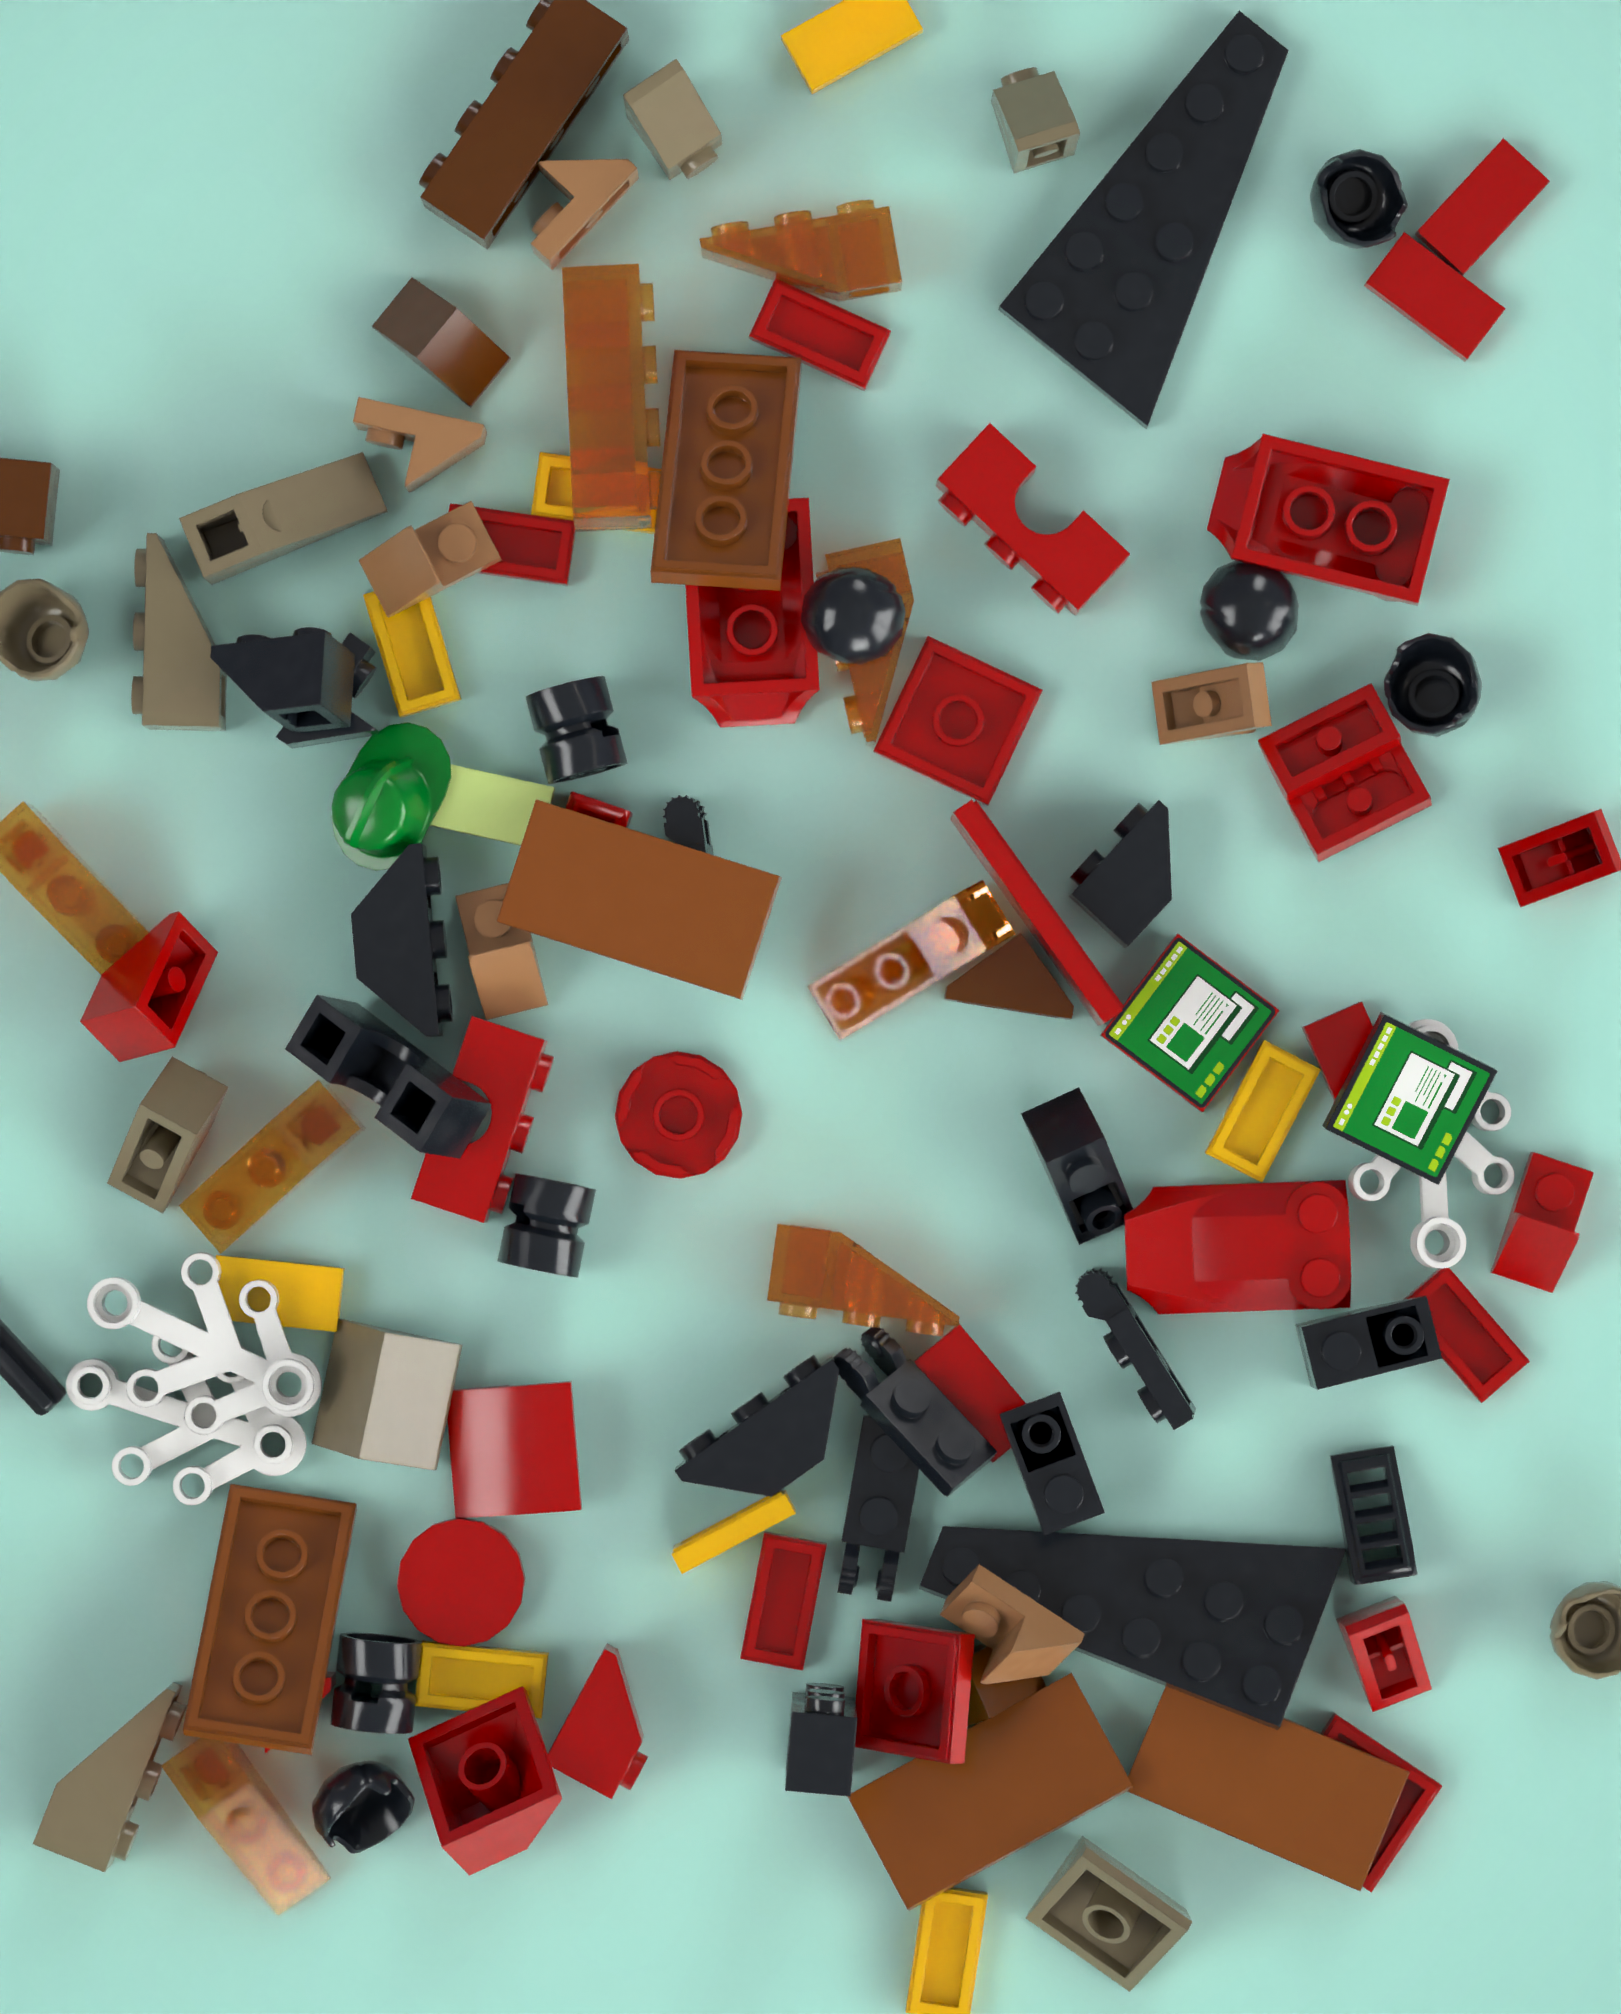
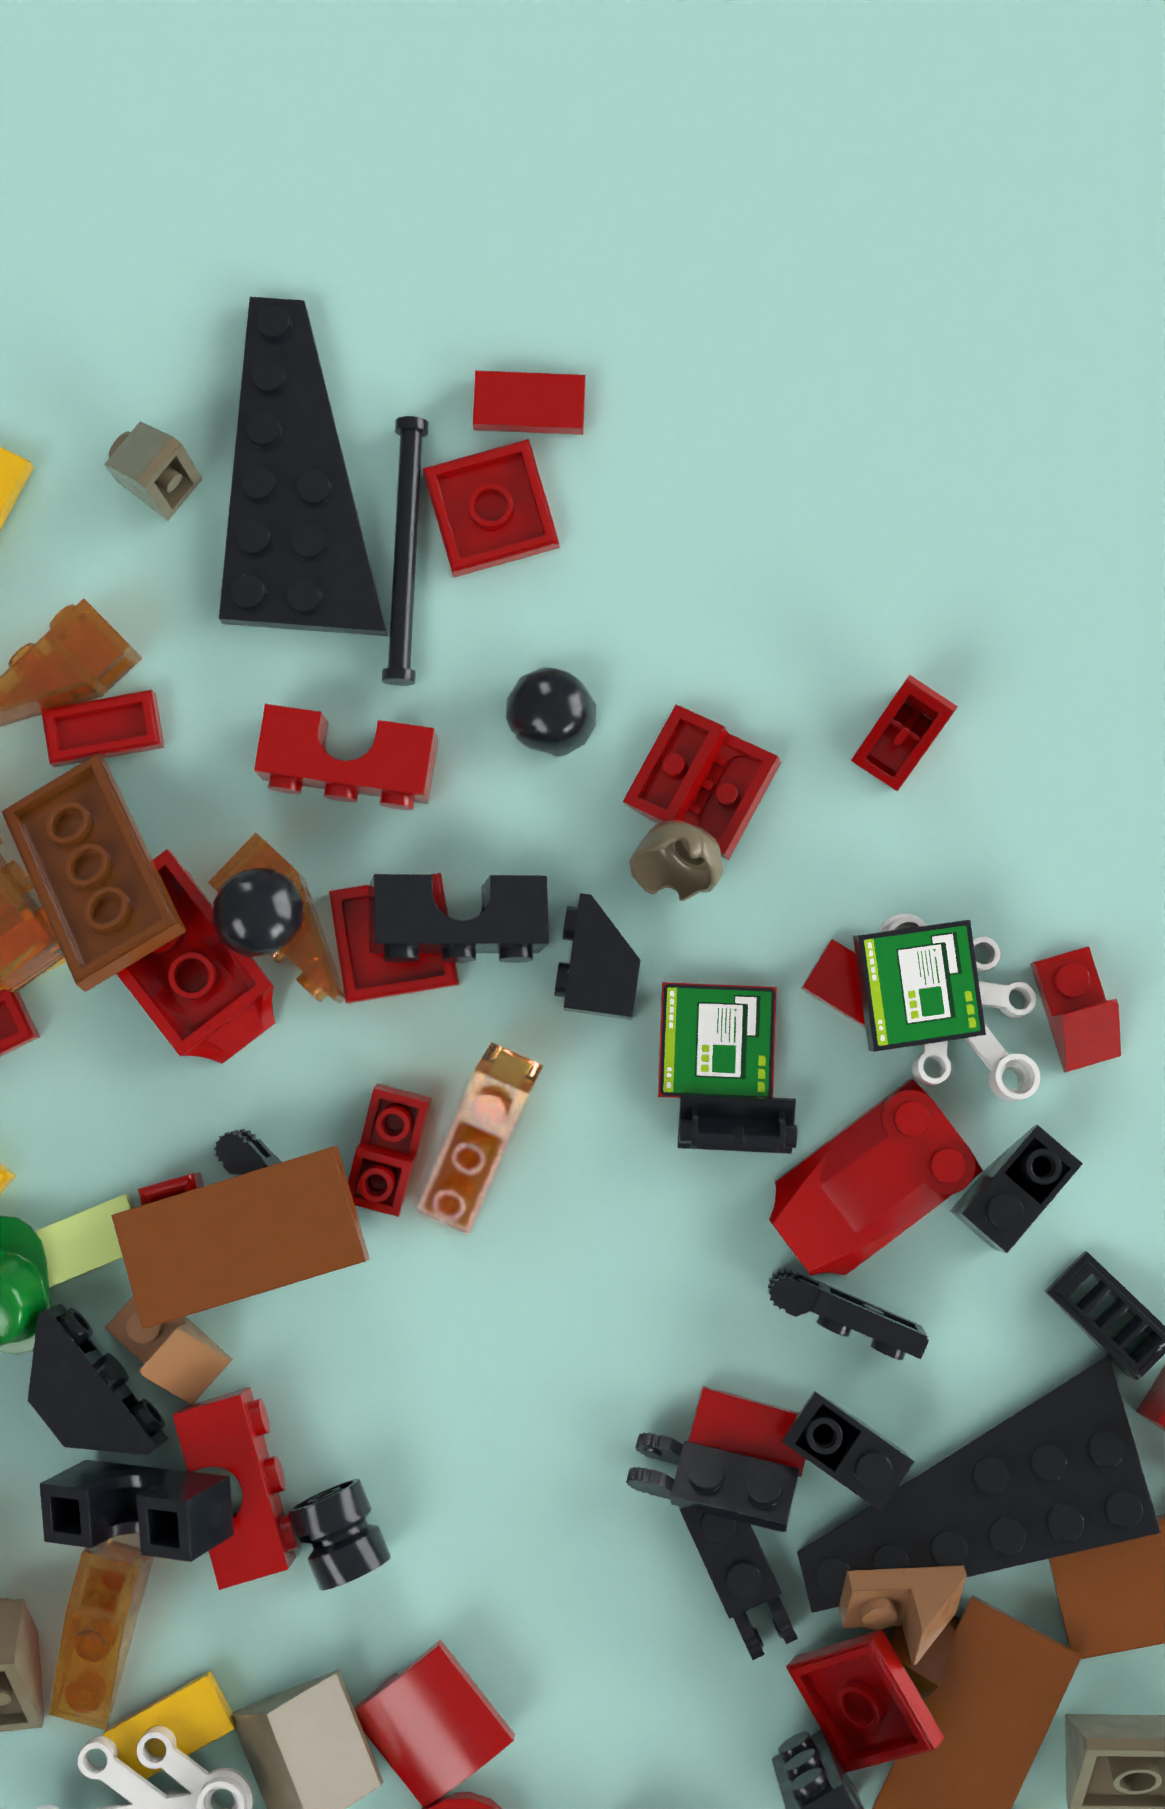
camera: 30 degrees left, 5 degrees down
(576, 729) = (110, 1140): black wheel -> none
(678, 1115) = (385, 1375): red tile -> none
(732, 1530) = (641, 1671): yellow tile -> none
(771, 1439) = (622, 1579): black slope -> none
(783, 1601) = (716, 1694): red tile -> none
(821, 911) = (388, 1149): none -> red slope
(834, 1272) = (589, 1413): clear orange slope -> none
(984, 718) = (410, 923): none -> black arch
(1012, 981) = (564, 1102): reddish brown slope -> none
(1036, 912) = (545, 1038): red tile -> none
(1078, 1165) = (708, 1205): black slope -> none
(1155, 1109) = (737, 1123): none -> black hinge
(1212, 704) = (571, 796): medium nougat slope -> none
(1218, 360) = (399, 661): none -> black bar
(1262, 1111) = (816, 1069): yellow tile -> none
(1271, 829) = (677, 858): none -> dark tan hair
(1327, 374) = (491, 508): none -> red tile
(1329, 517) = (562, 604): red slope -> none
(1358, 199) = (425, 368): black hair -> none
(1432, 685) = (721, 673): black hair -> none
(1469, 1336) = (1086, 1131): red tile -> none
(1482, 207) = (519, 317): red tile -> none

